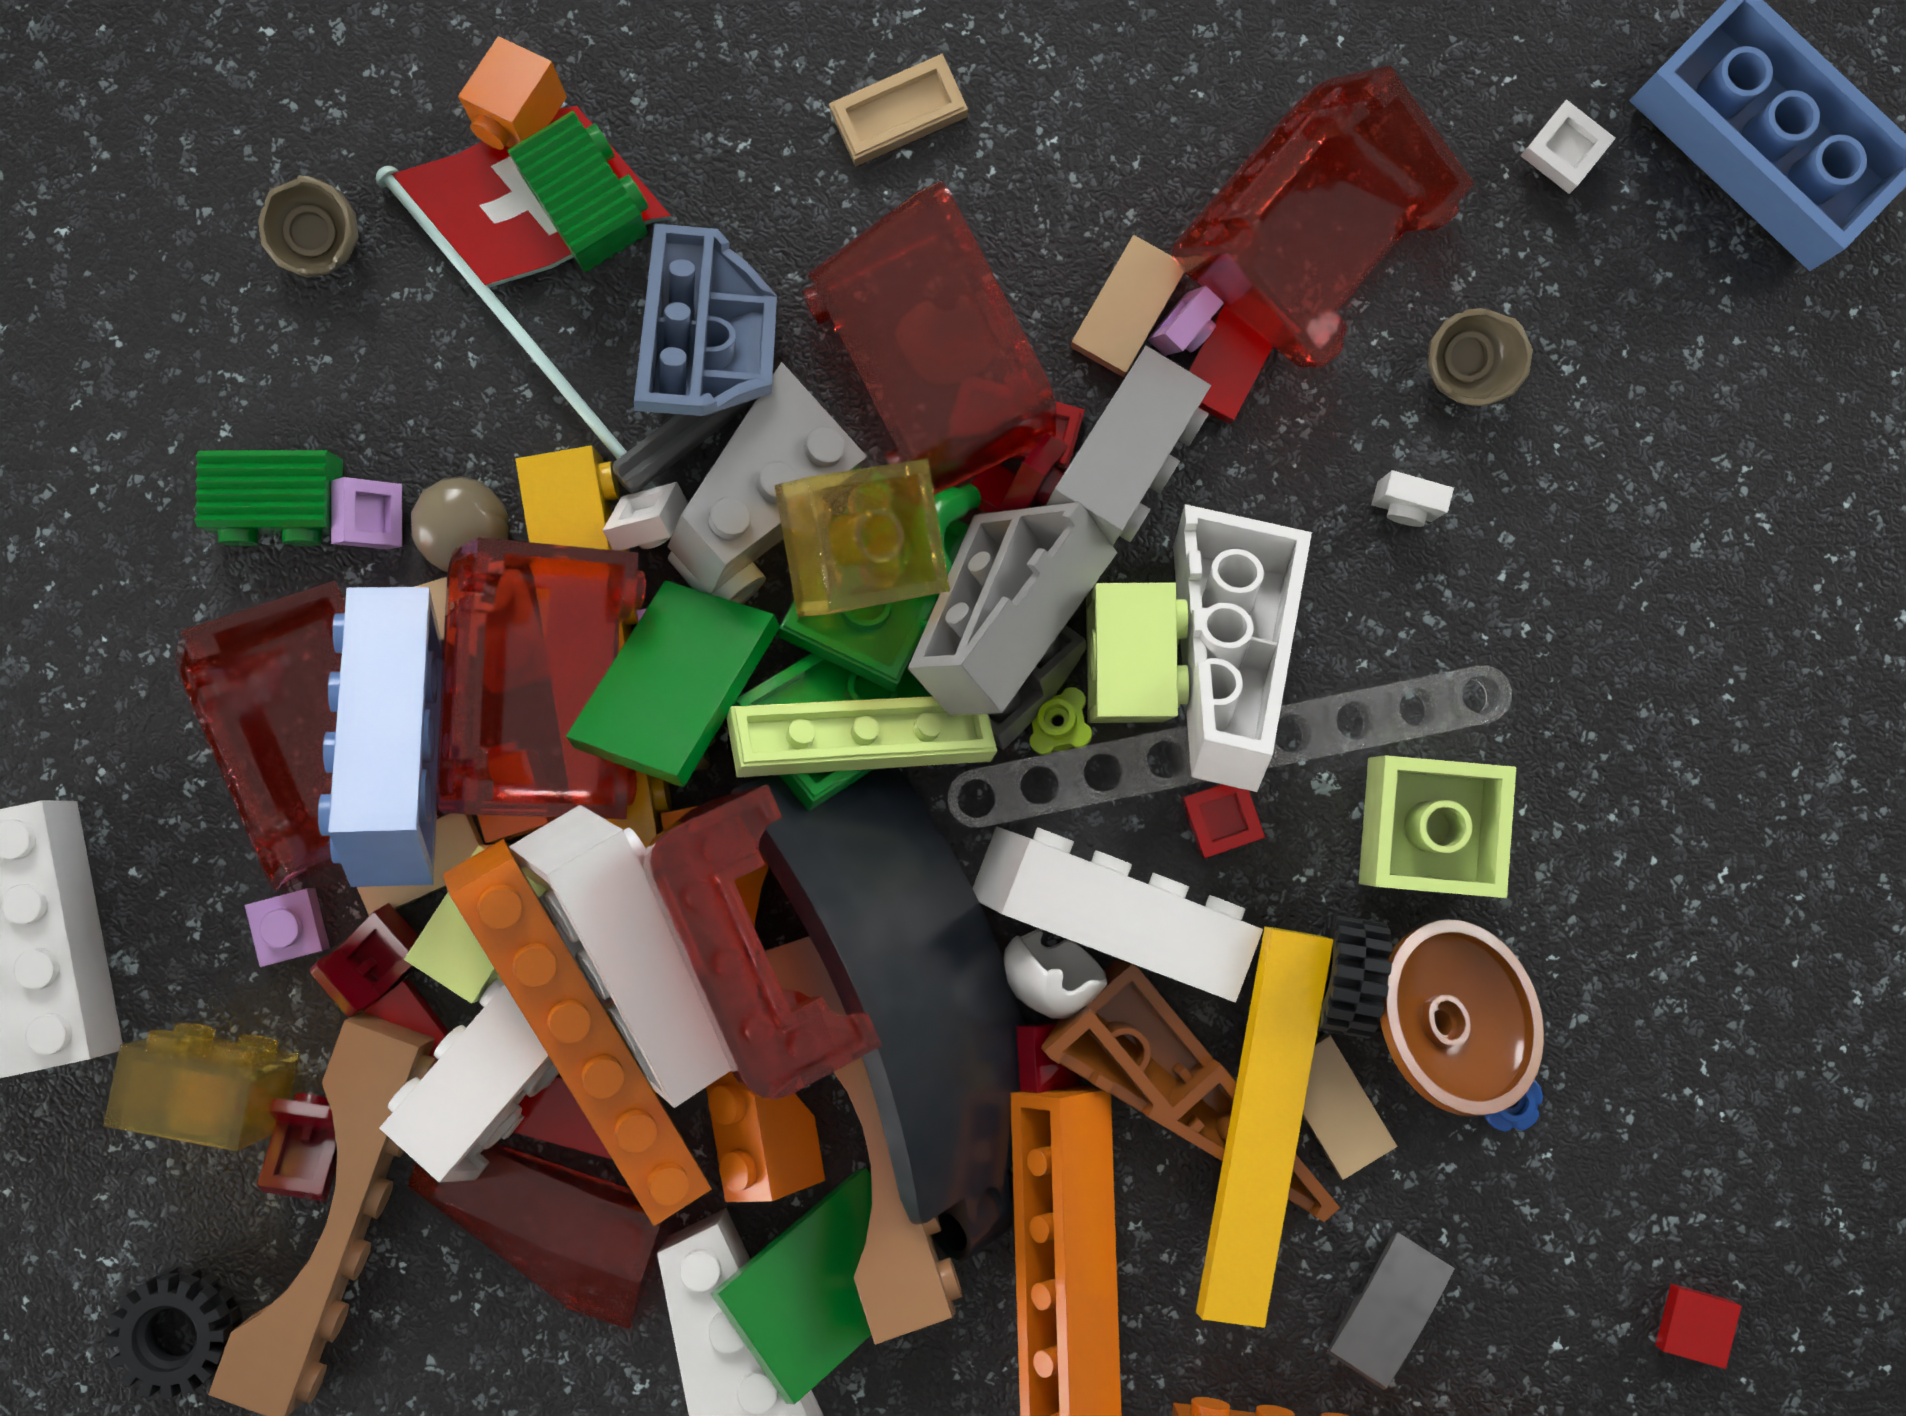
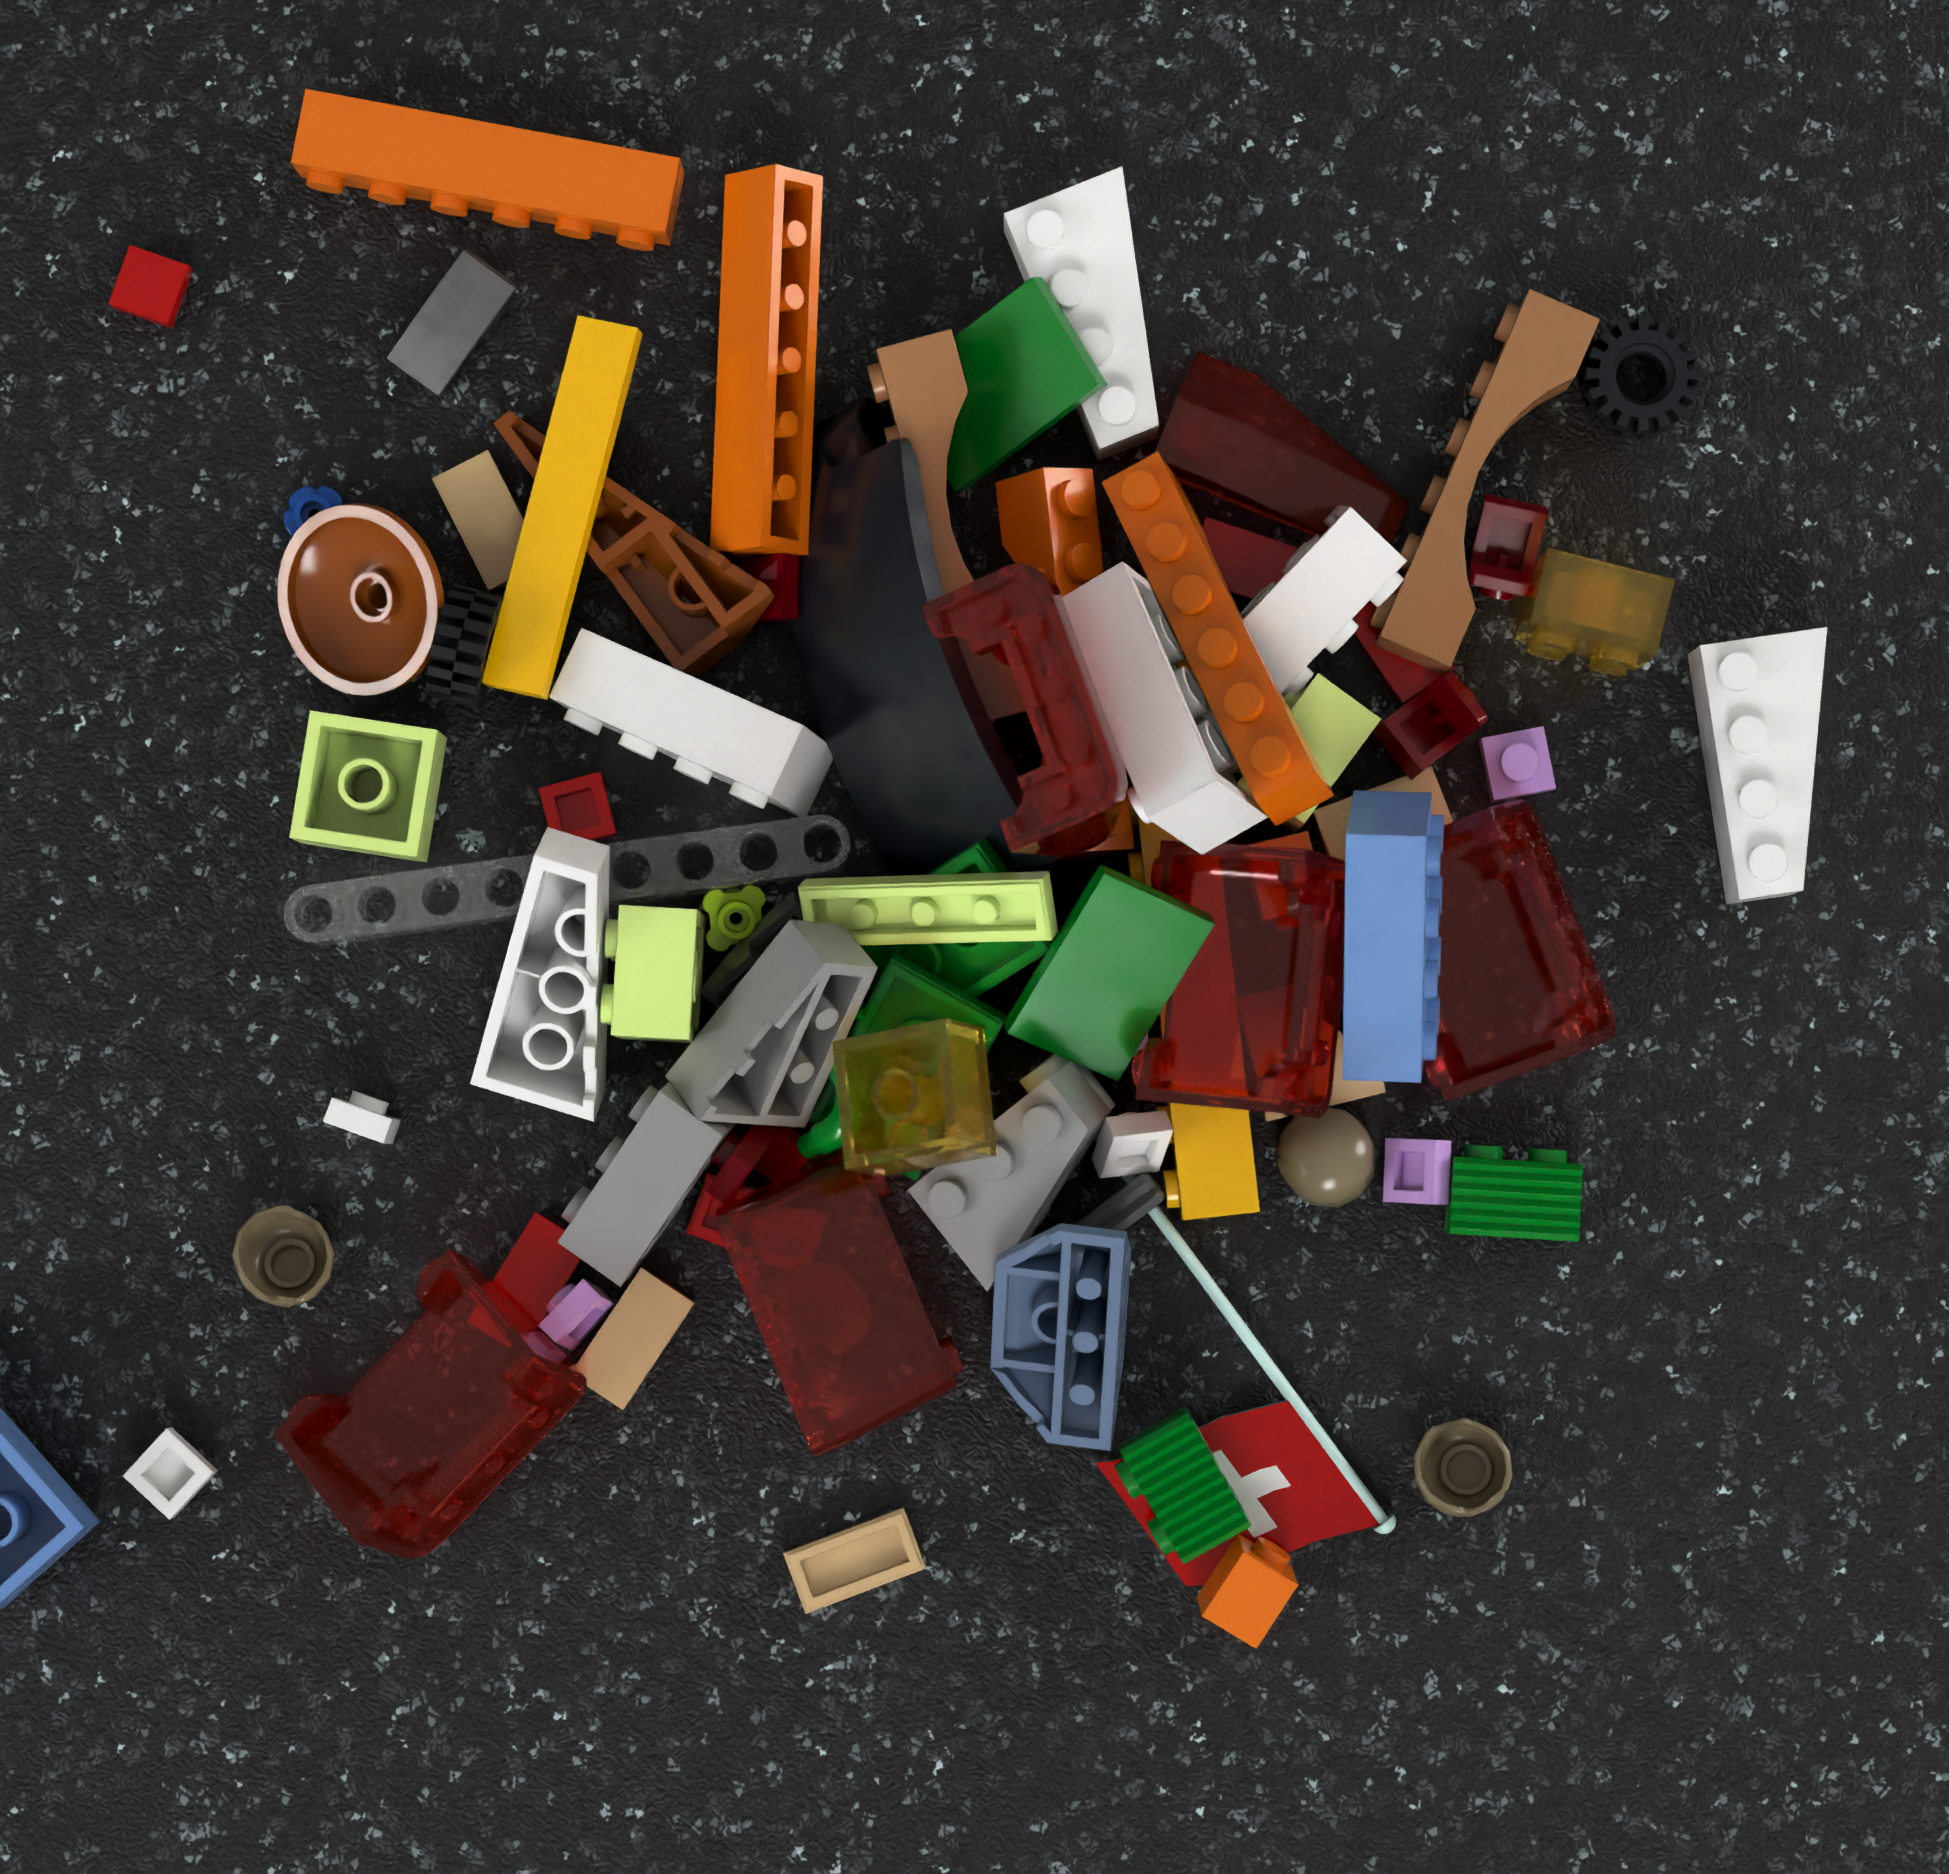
camera: 165 degrees left, 0 degrees up
(1053, 978) = (758, 663): white hair -> none

